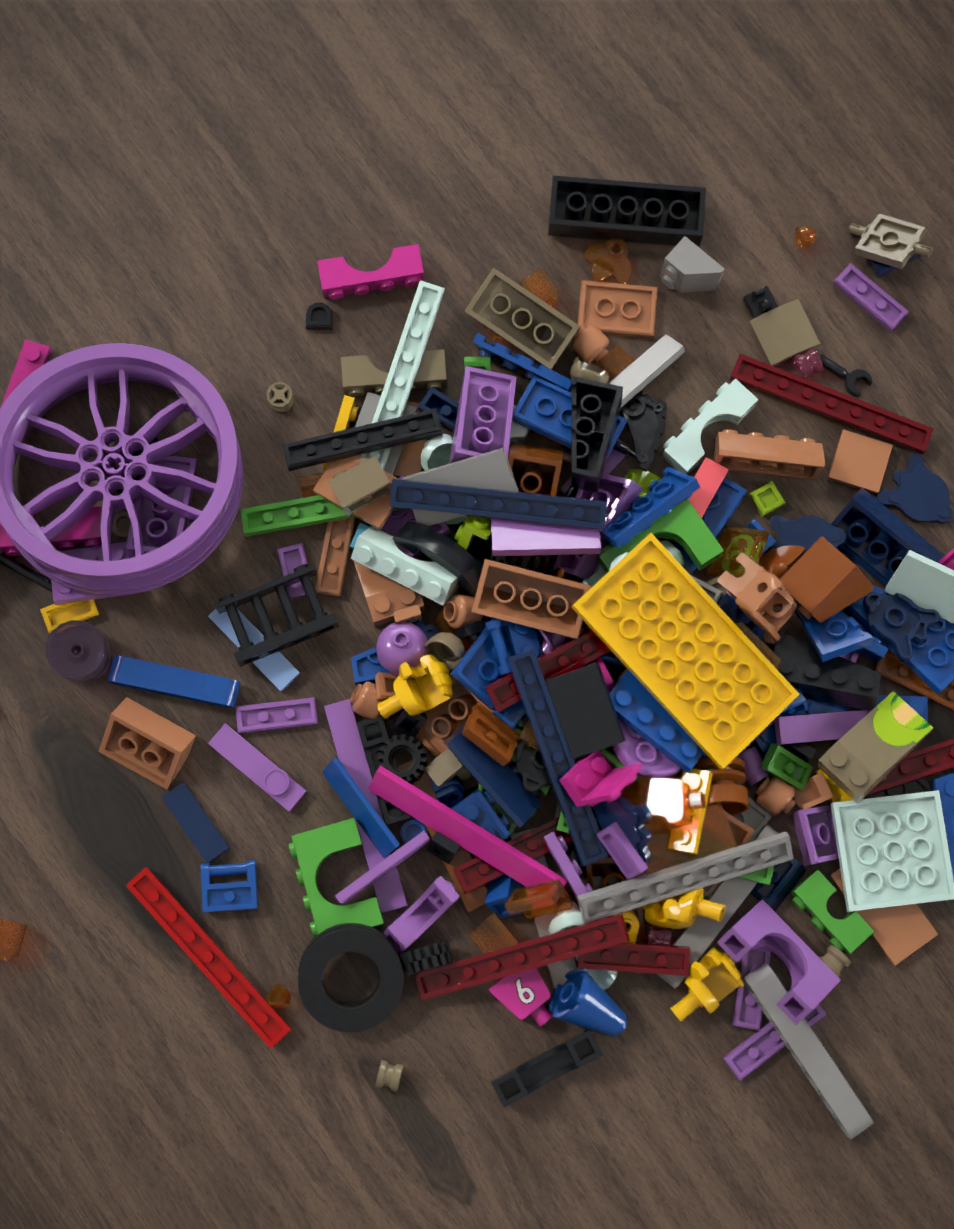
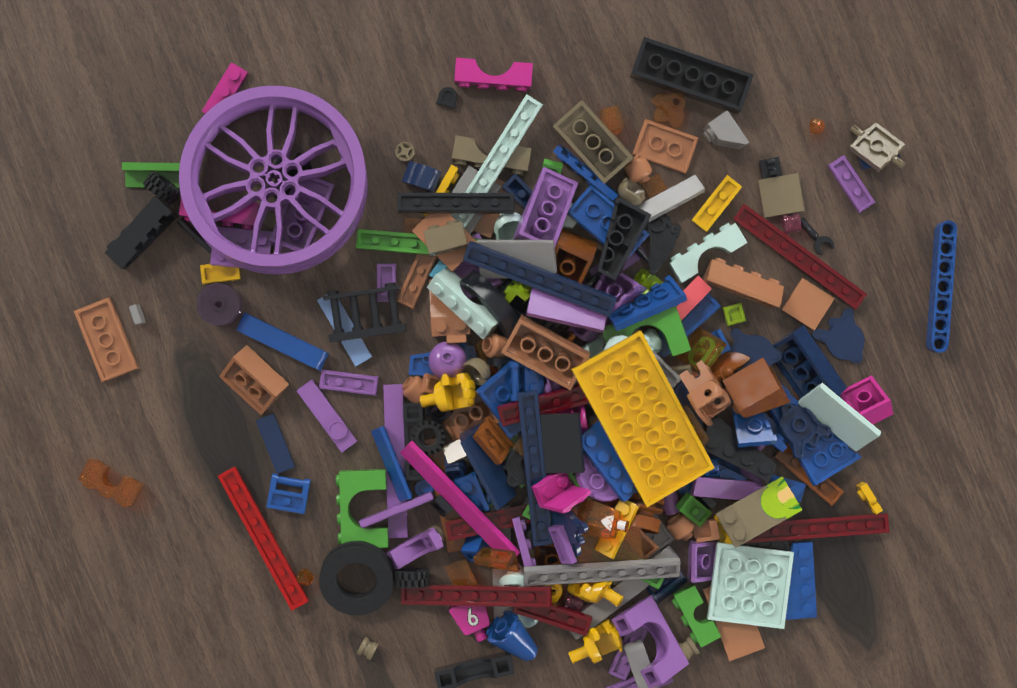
camera: 15 degrees right, 10 degrees up
(309, 420) = (422, 177): none -> dark blue piece
(703, 363) = (716, 203): none -> yellow plate

